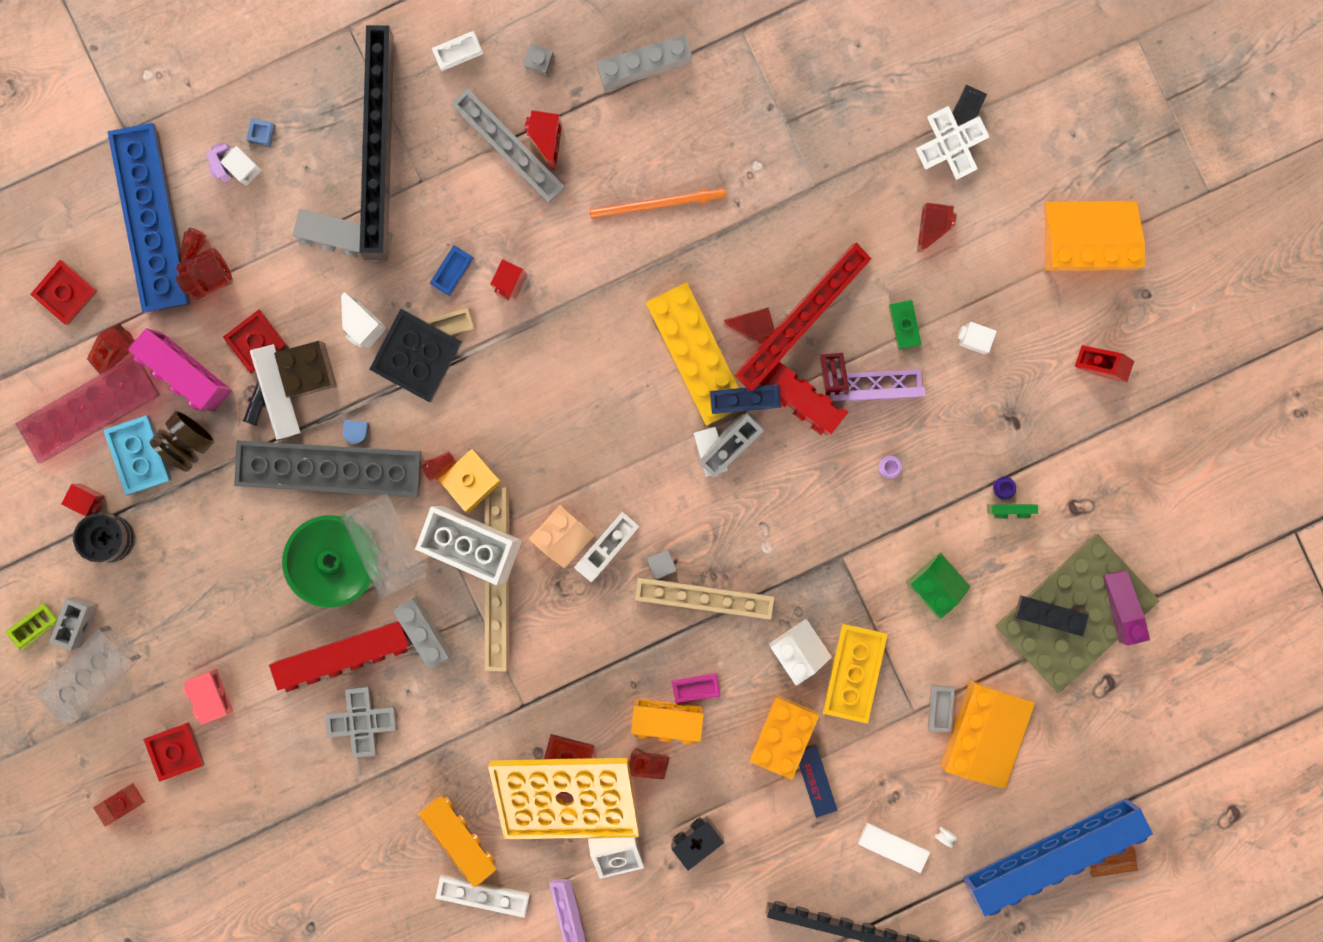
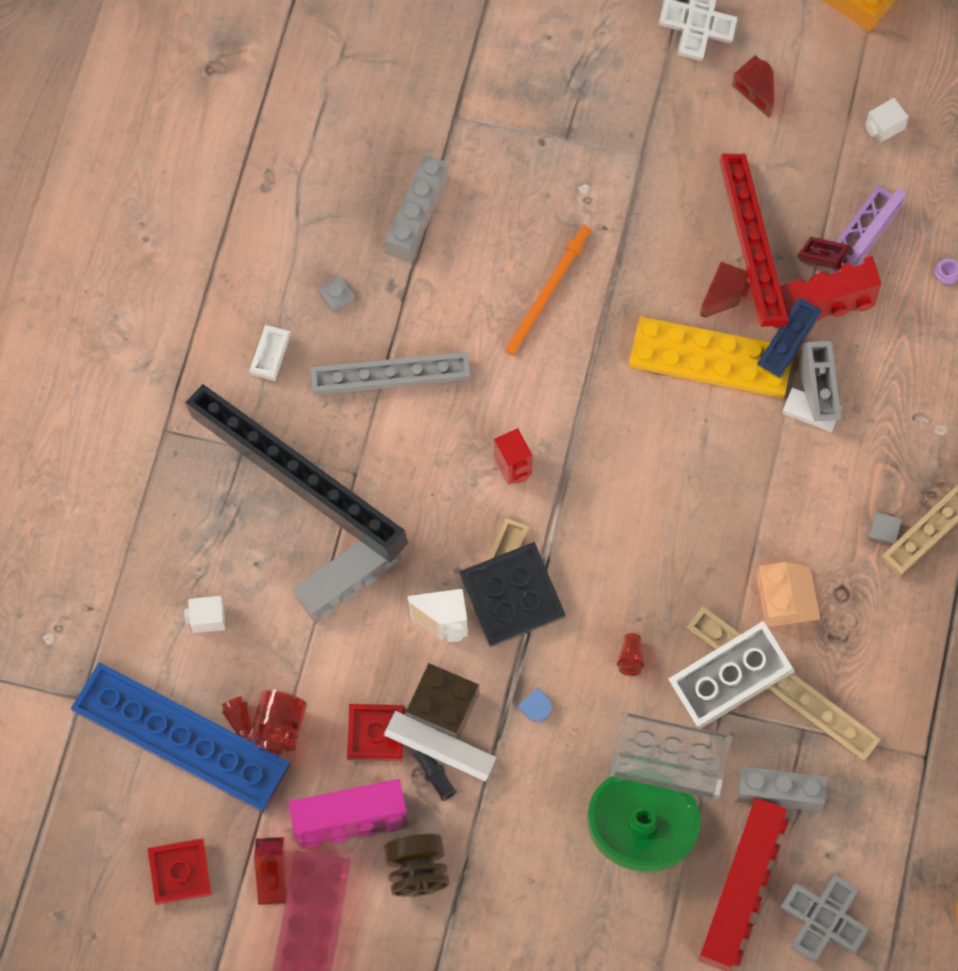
camera: 45 degrees left, 20 degrees down
(133, 456) = (391, 926): medium azure plate -> none
(215, 157) = (189, 635): lavender bracket -> none
(260, 132) = (190, 577): medium blue tile -> none
(327, 468) = (550, 758): dark grey plate -> none
(451, 270) = (459, 507): blue tile -> none
(469, 481) = (669, 635): yellow plate -> none
(545, 135) = (412, 331): red slope -> none
(606, 547) = (831, 564): white slope -> none
(905, 324) = (826, 170): green plate -> none

